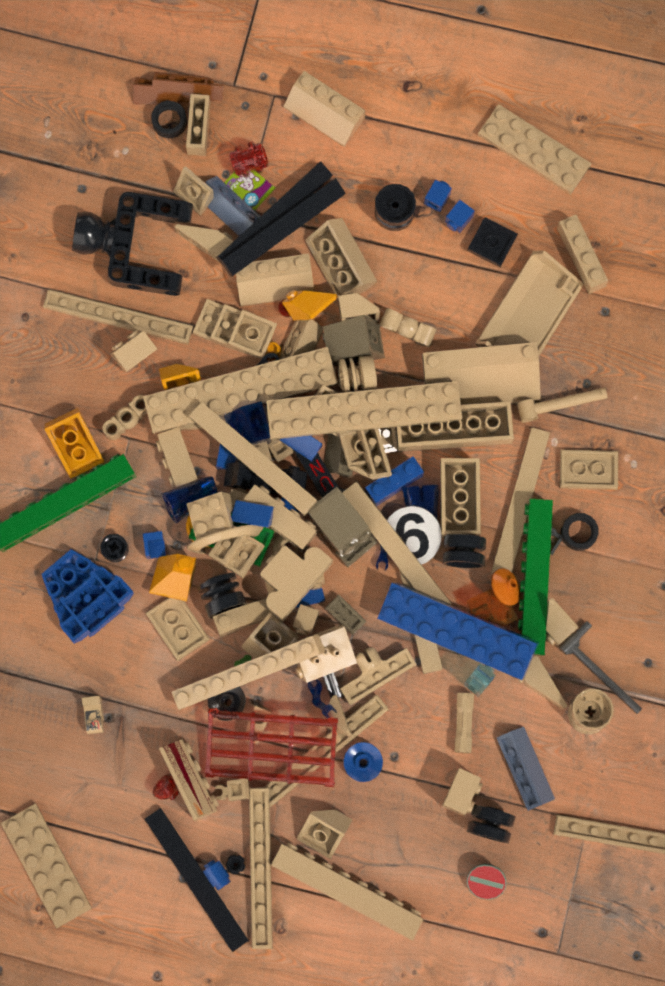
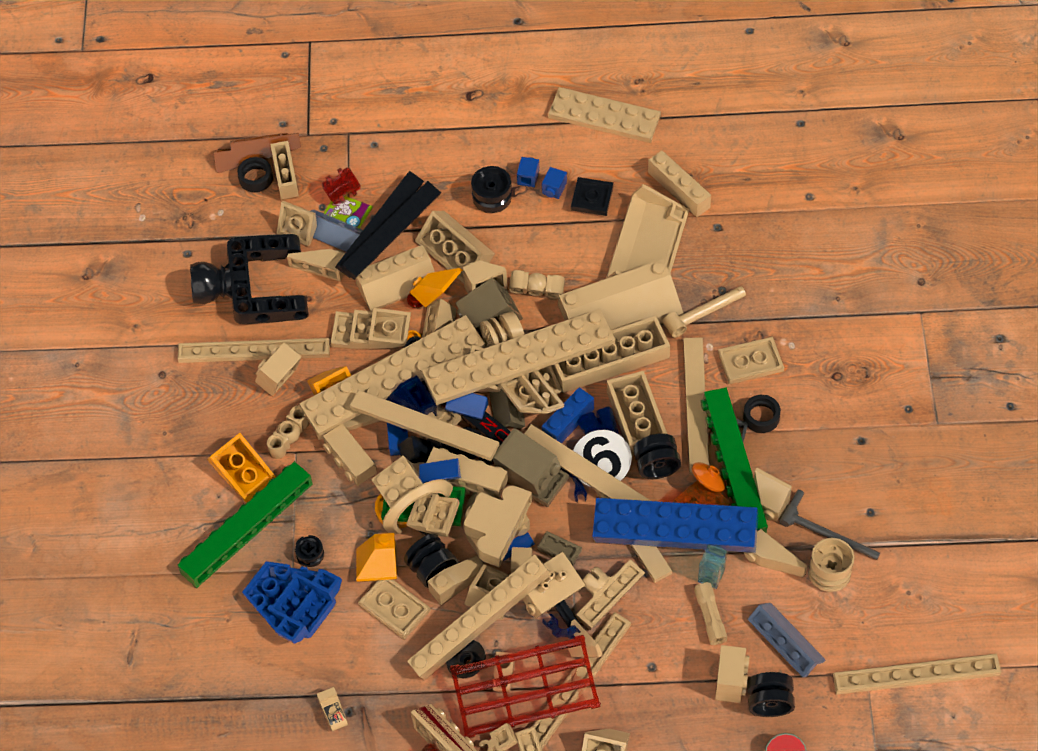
camera: 15 degrees left, 20 degrees down
(154, 545) = (348, 536): blue panel -> none
(177, 499) = (361, 488): clear blue piece -> none
(324, 109) = (399, 129): tan slope -> none
(370, 754) = (625, 669): blue dish -> none

